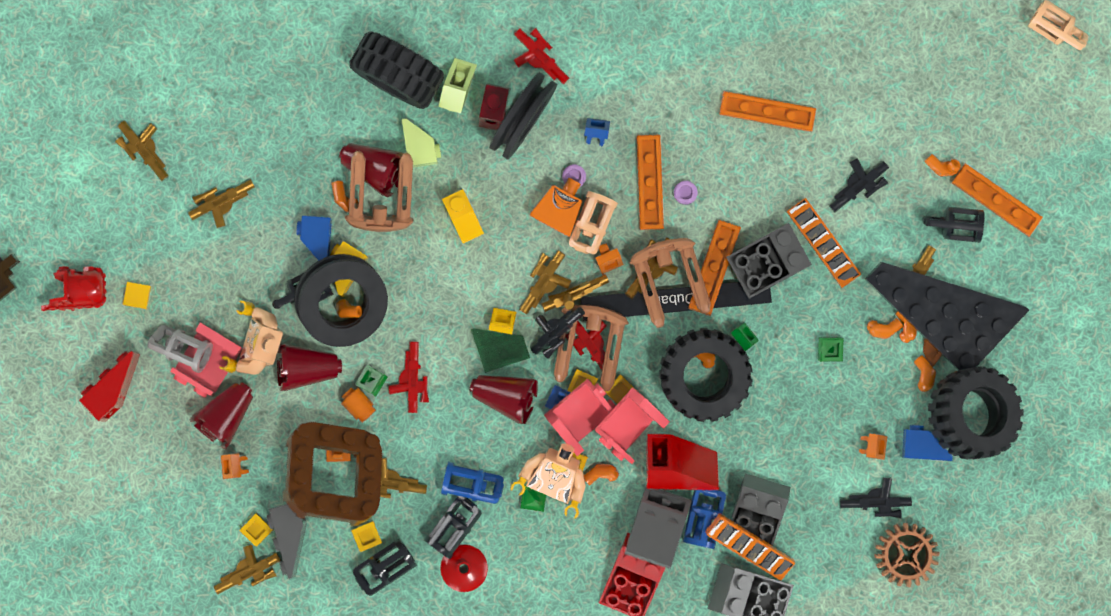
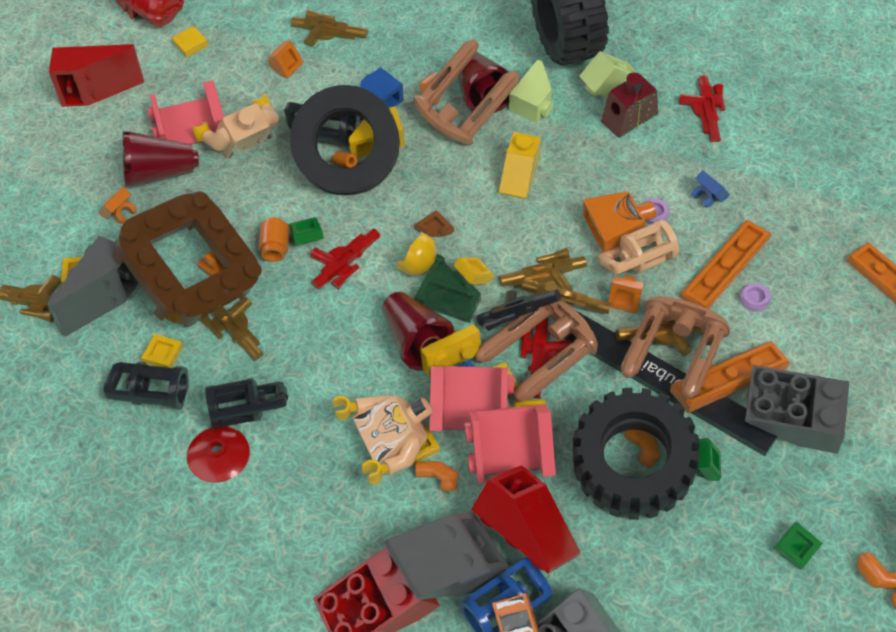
camera: 45 degrees right, 30 degrees down
(174, 345) = (176, 86): light grey piece -> none
(223, 257) = (285, 59): none -> orange tile
(305, 367) = (259, 172): dark red cone -> none
(445, 305) = (434, 225): none -> dark orange tile
(460, 341) = (419, 256): none -> yellow hair
(477, 487) = (306, 382): blue piece -> none
(523, 115) = (640, 88): black tyre -> none
(533, 500) = (348, 443): green tile -> none
(539, 398) = (451, 349): none -> yellow plate
(823, 243) = (871, 443): tile -> none

